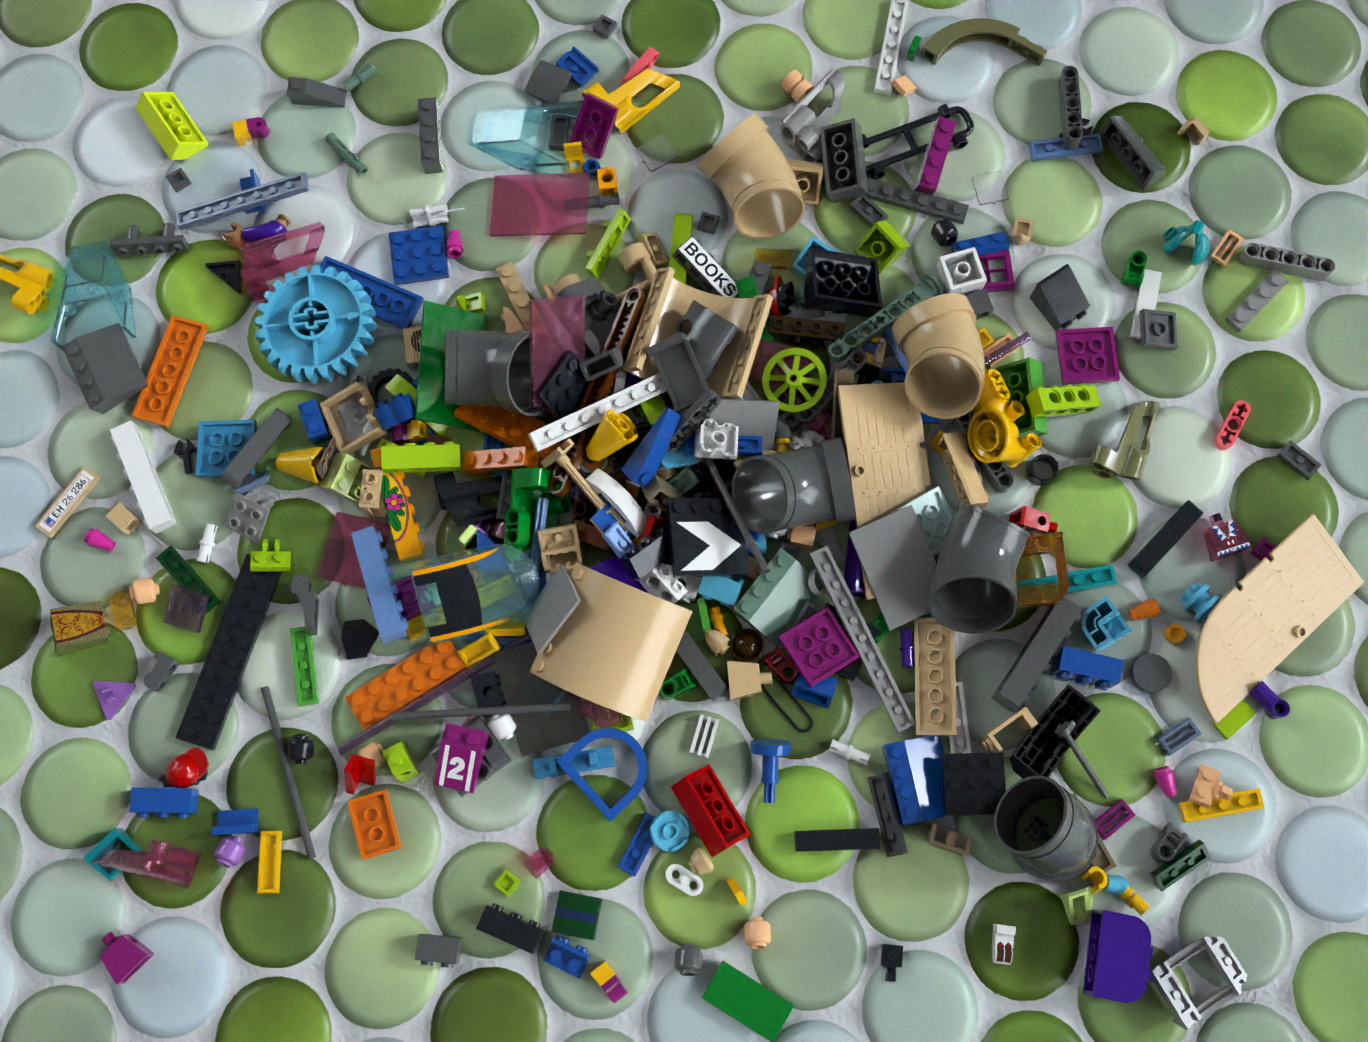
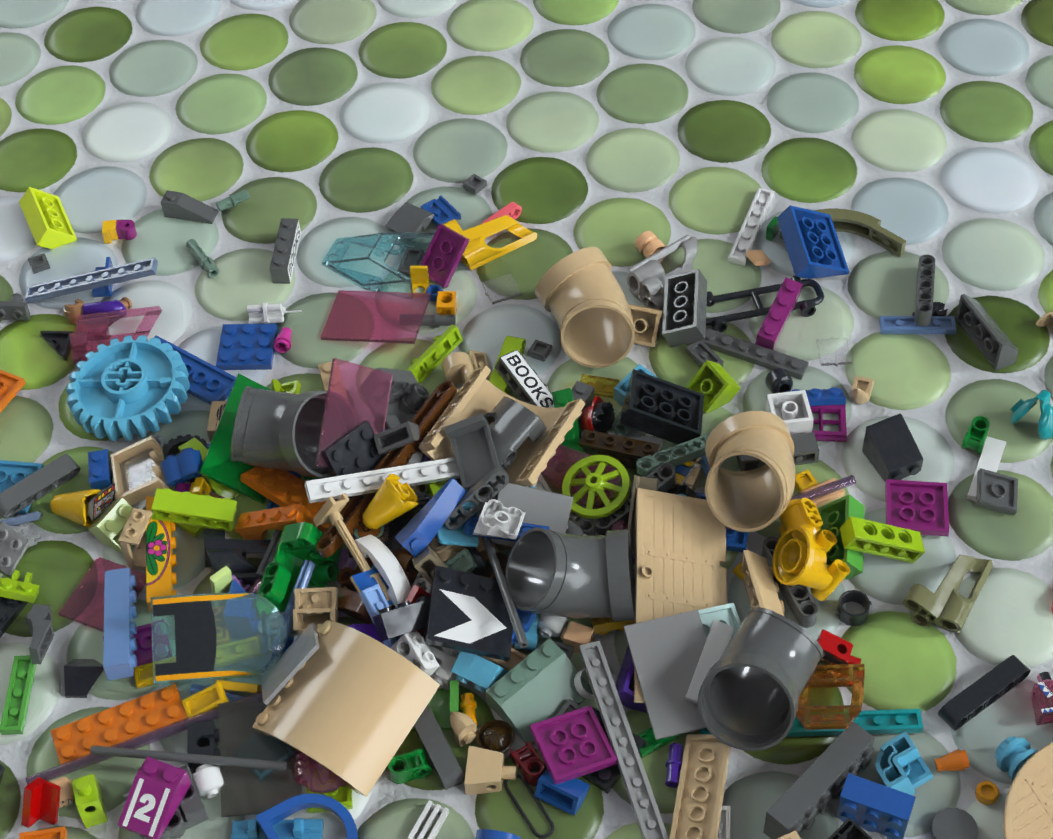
camera: 10 degrees right, 25 degrees down
(928, 552) = (712, 651): none -> white tile
(957, 67) = (812, 243): none -> blue slope

